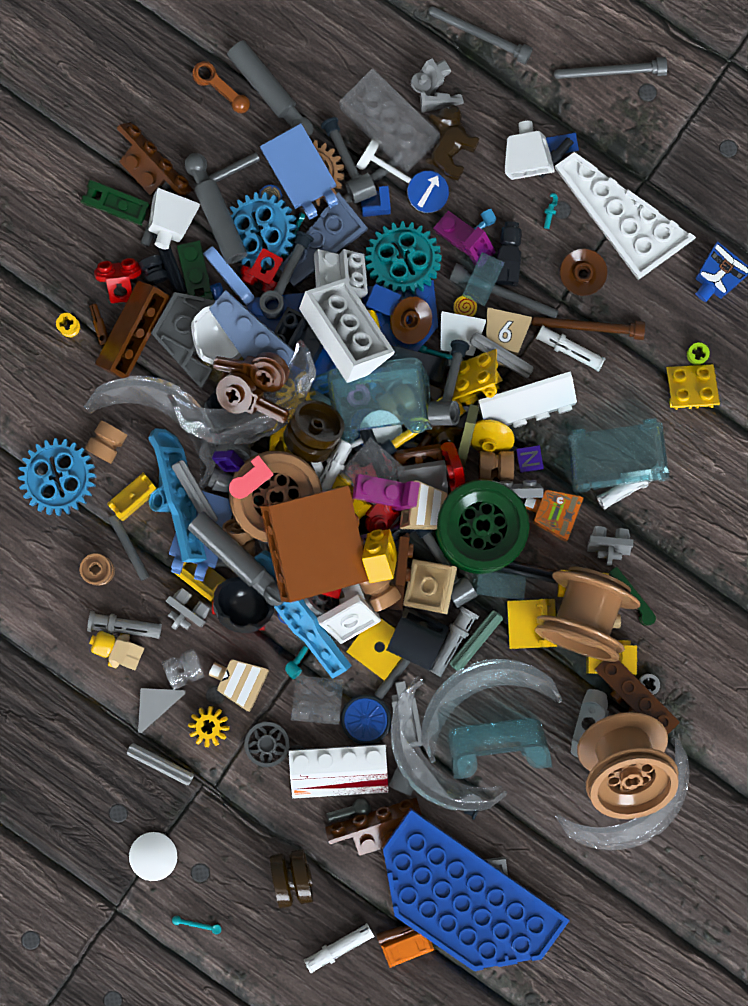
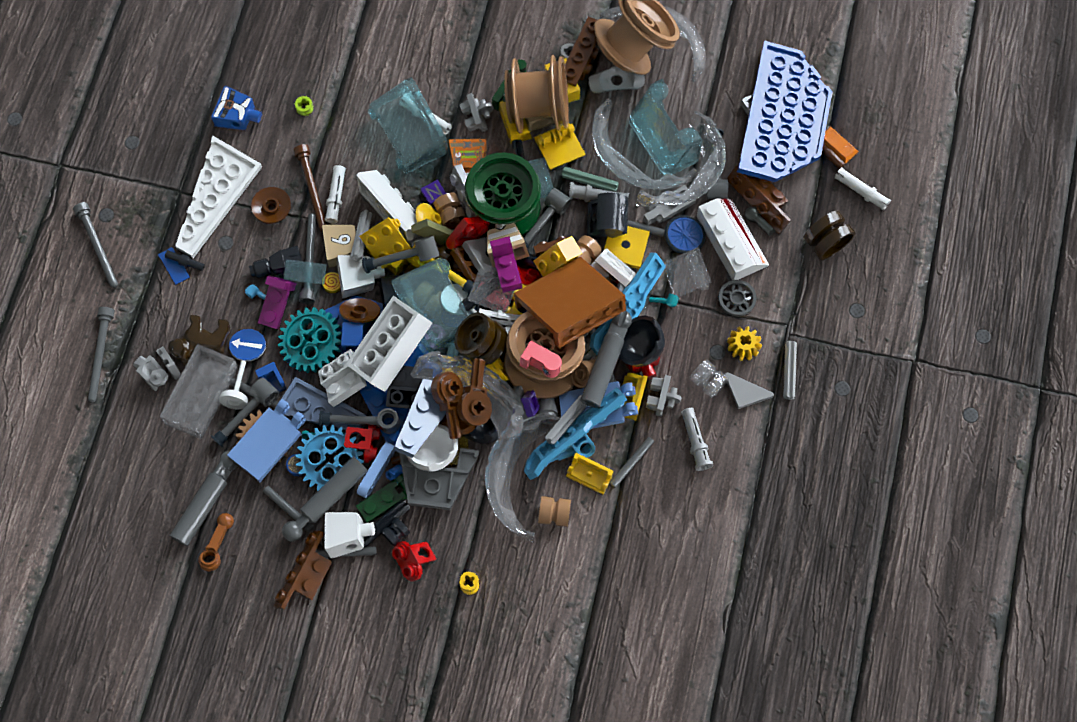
camera: 115 degrees left, 15 degrees down
(77, 470) = (586, 526): dark azure gear -> none
(97, 569) = (661, 475): medium nougat wheel -> none
(99, 324) = (460, 559): reddish brown piece -> none
(116, 203) = (349, 587): dark green plate -> none
(118, 650) = (717, 433): tan piece -> none
(132, 330) = (453, 526): reddish brown brick -> none
(153, 856) = (862, 347): white dish -> none
(216, 929) = (892, 282): teal hinge -> none
(240, 681) = (698, 333): torso -> none
(424, 349) = (378, 299): teal hinge -> none
(430, 586) = (563, 220): tan tile -> none
(527, 153) = (188, 277): white torso -> none
(550, 211) = (230, 249): teal hand -> none
(692, 386) = (331, 99): yellow hinge -> none

